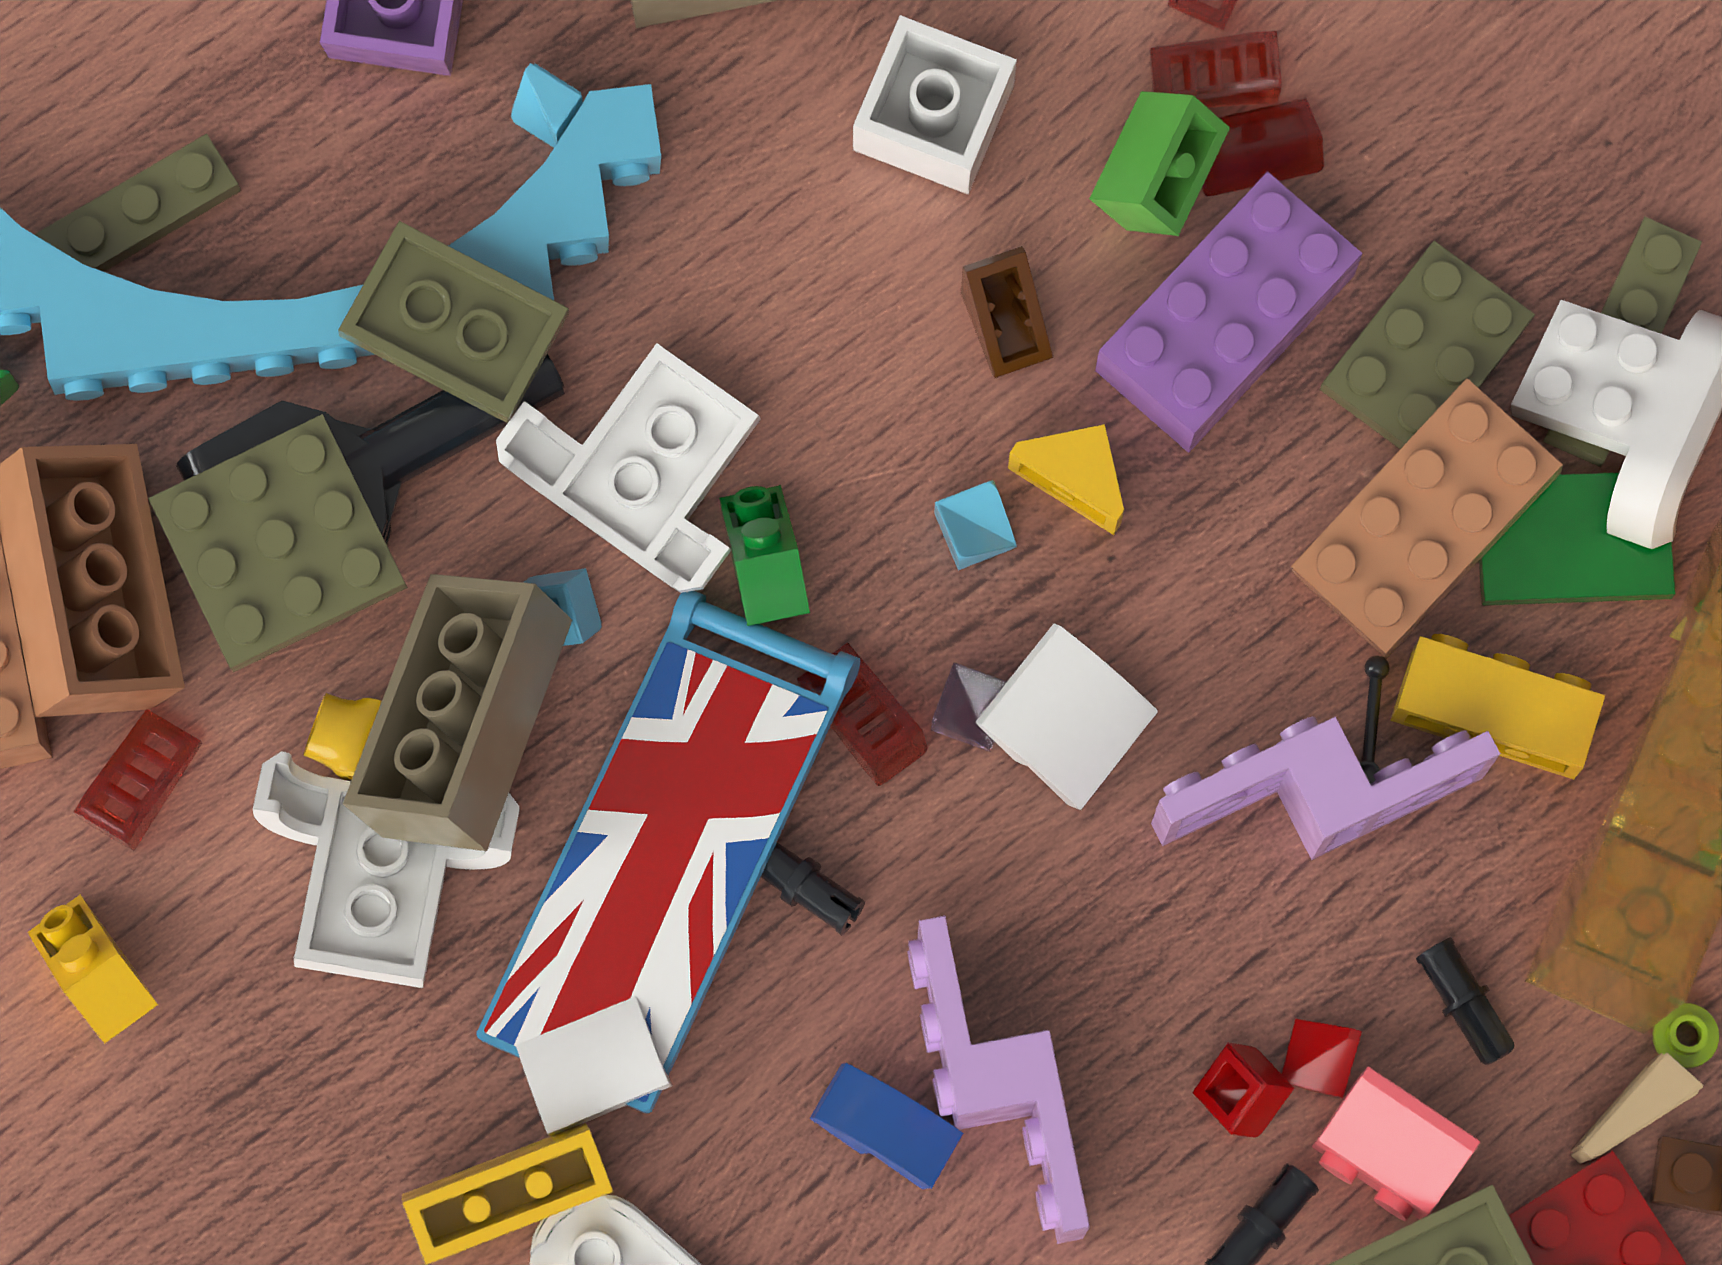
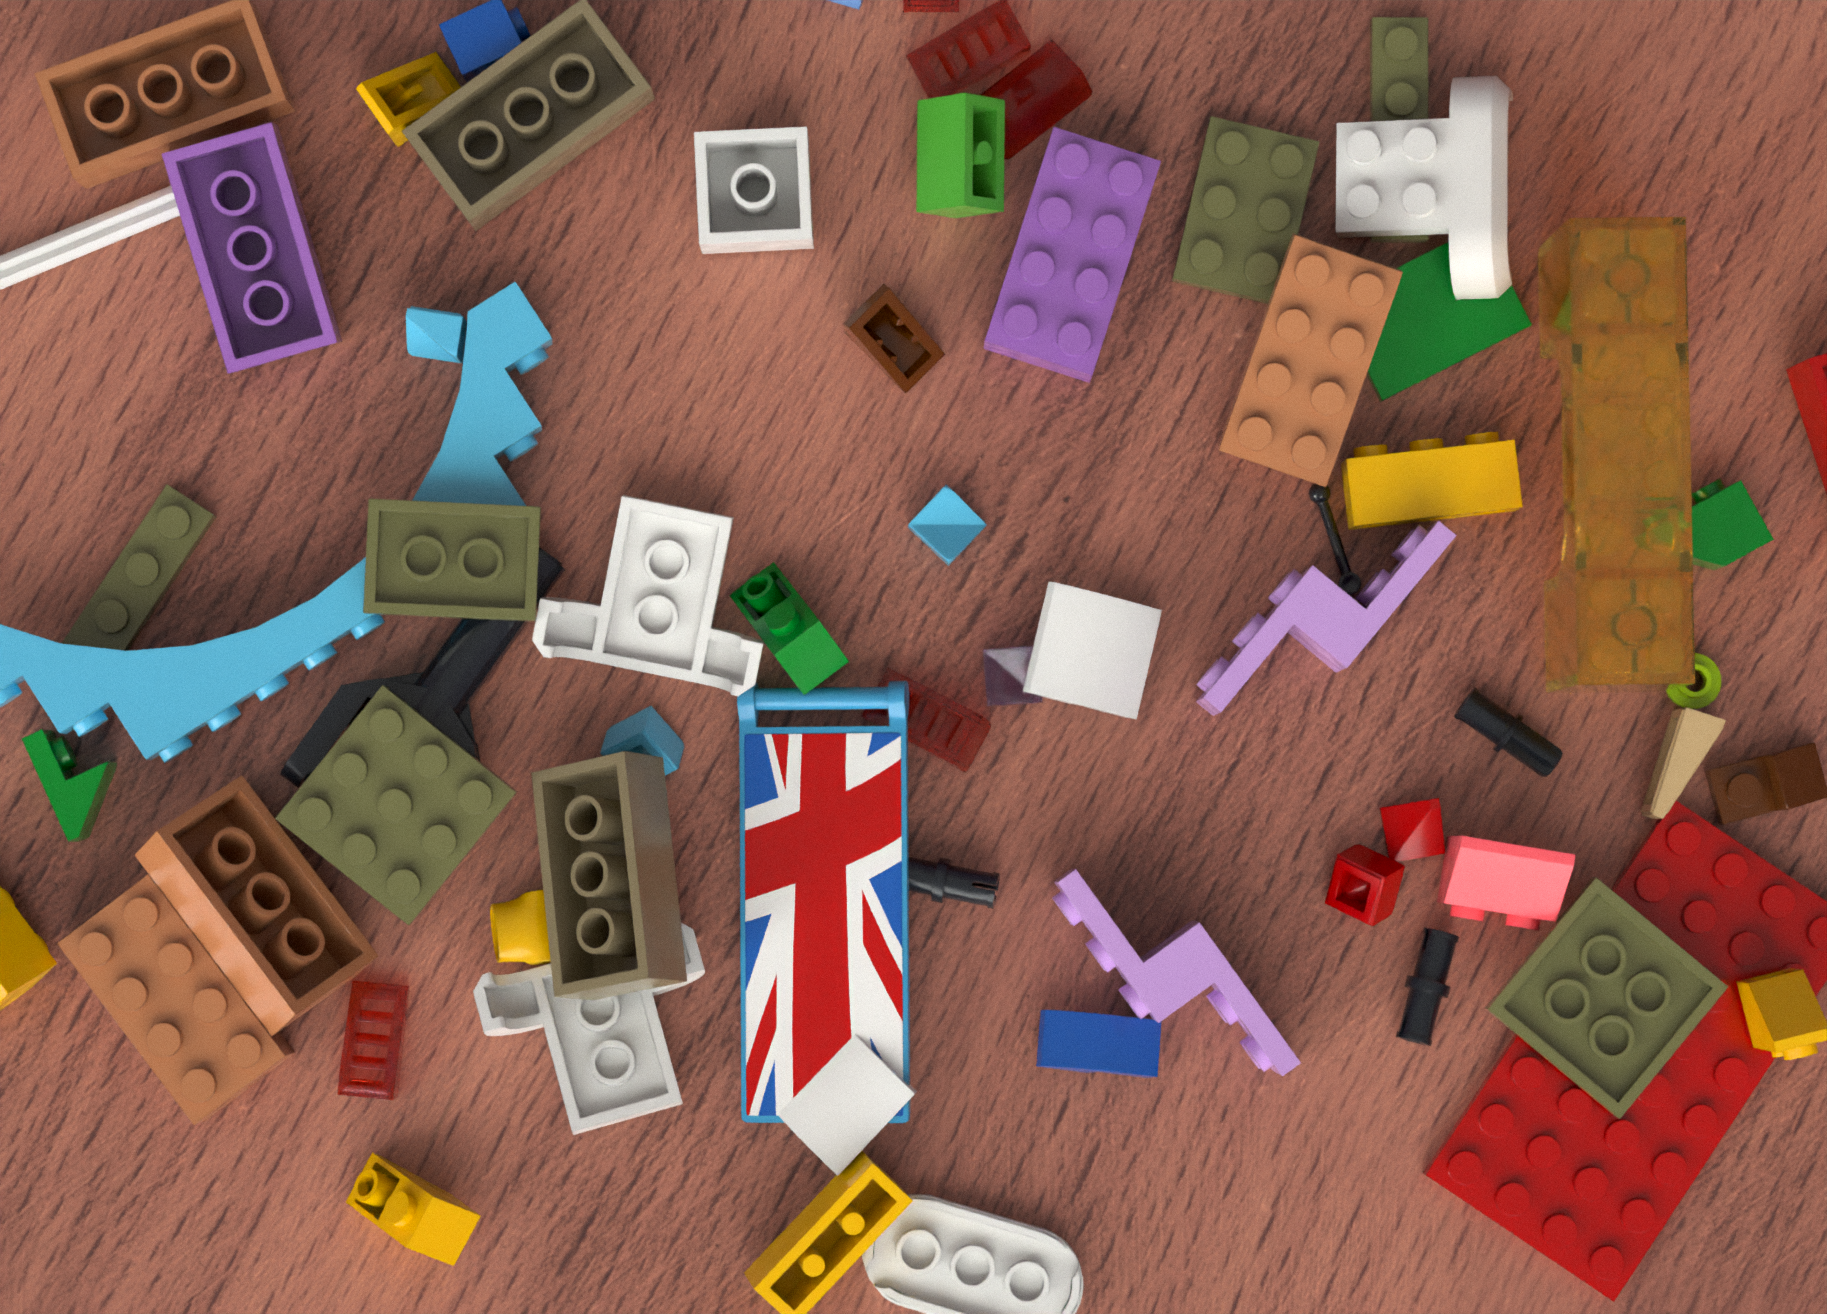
camera: 25 degrees left, 10 degrees up
(1074, 470) = (1009, 444): yellow slope -> none

